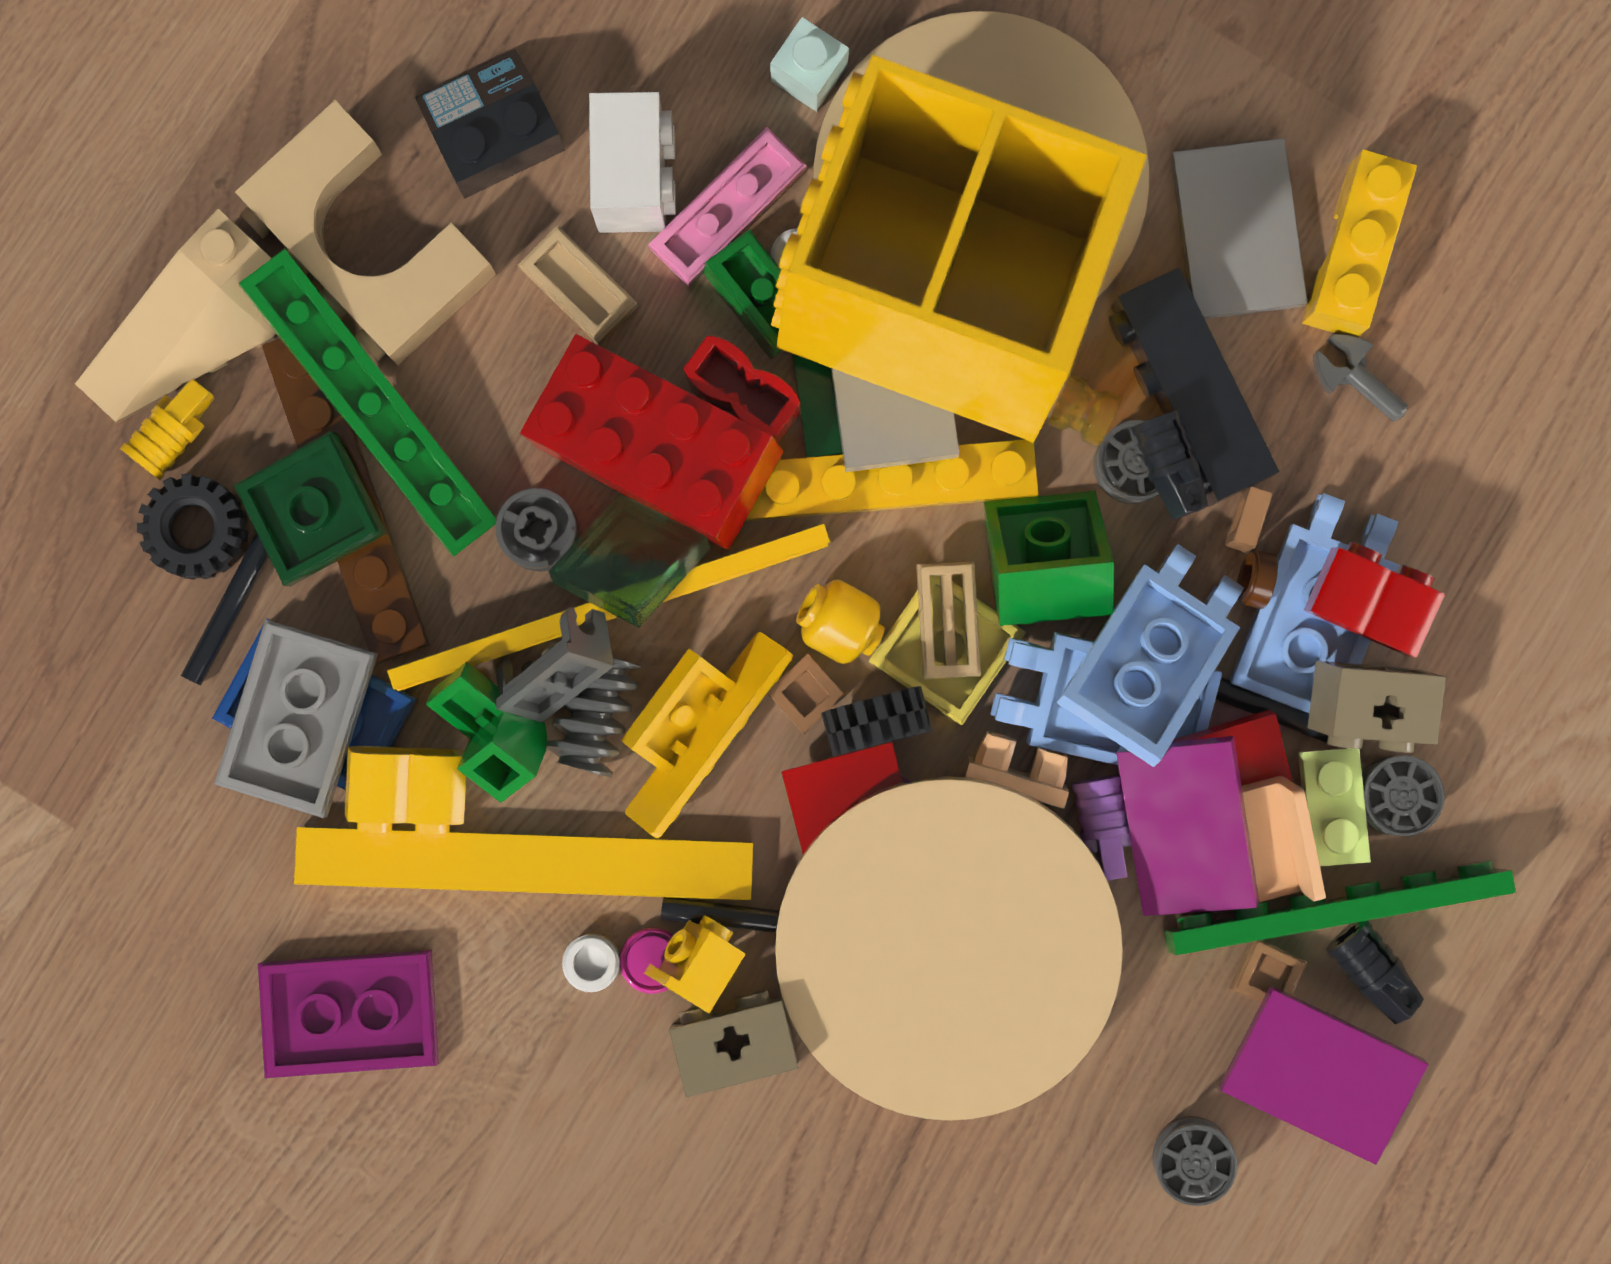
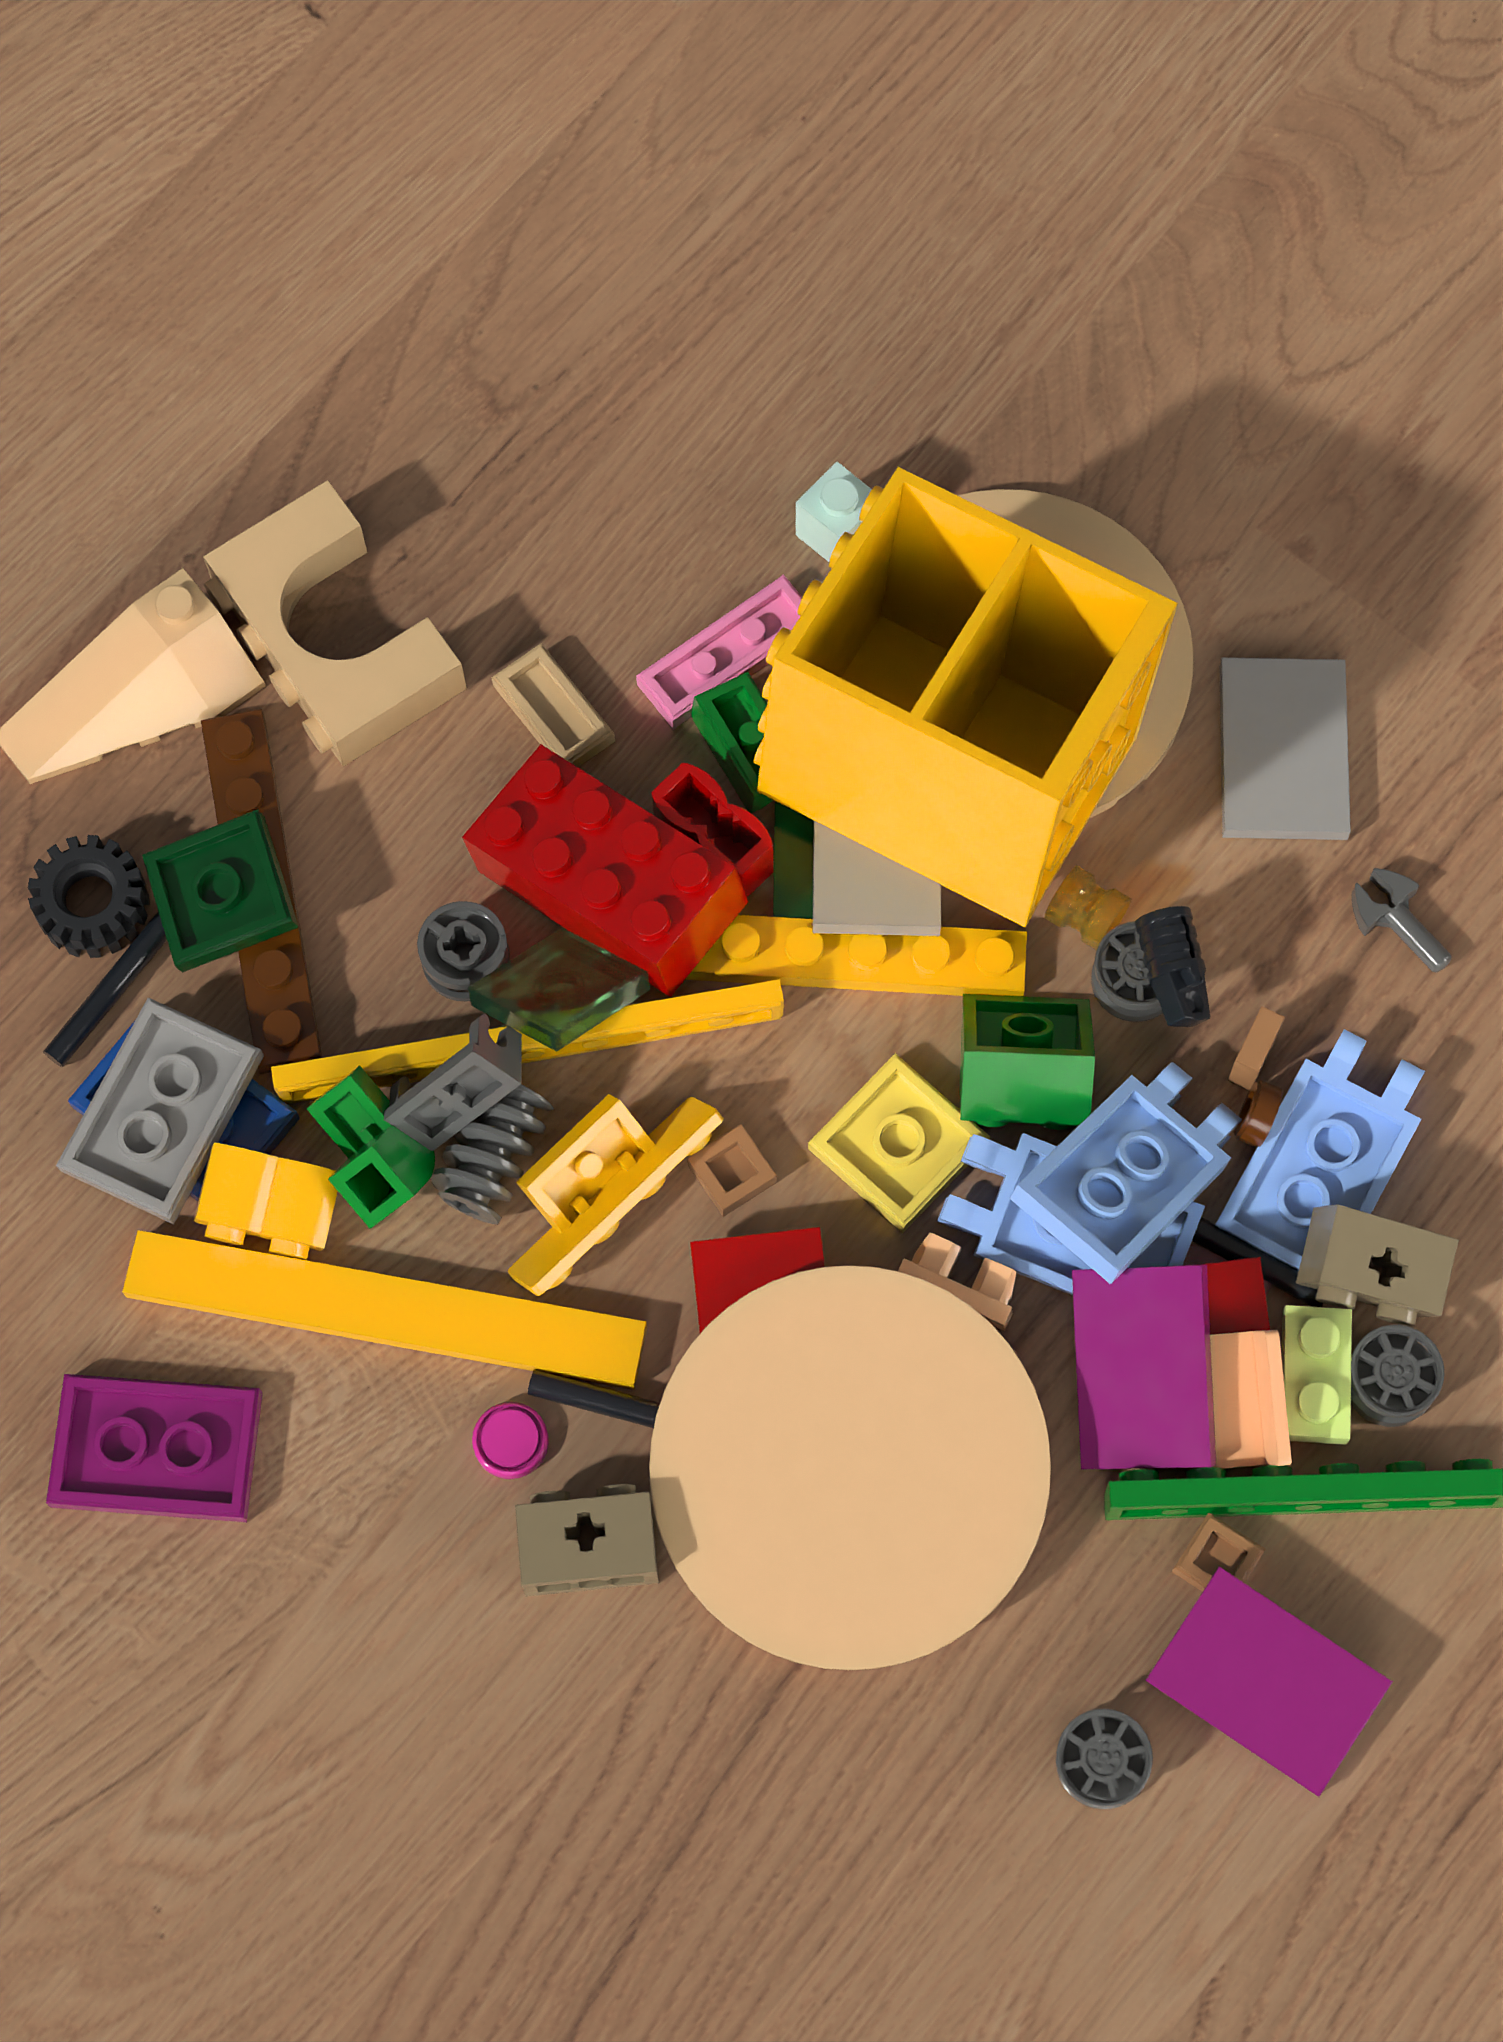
camera: 15 degrees right, 15 degrees down
(169, 429) = (83, 792): yellow hinge -> none
(368, 402) = (305, 792): green plate -> none
(490, 123) = (489, 536): black slope -> none
(591, 962) = (440, 1431): white tile -> none
(627, 162) = (630, 583): white piece -> none
(698, 963) = (560, 1440): yellow brick -> none
(840, 621) = (783, 1093): yellow head -> none
(876, 721) = (807, 1197): black tyre -> none
(951, 669) = (900, 1160): tan tile -> none
(1104, 822) = (1049, 1354): medium lavender hinge -> none
(1188, 373) = (1204, 869): black brick -> none
(1362, 244) = (1413, 775): yellow arch -> none
(1374, 600) = (1386, 1145): red brick -> none
(1376, 971) = (1345, 1571): black hinge -> none

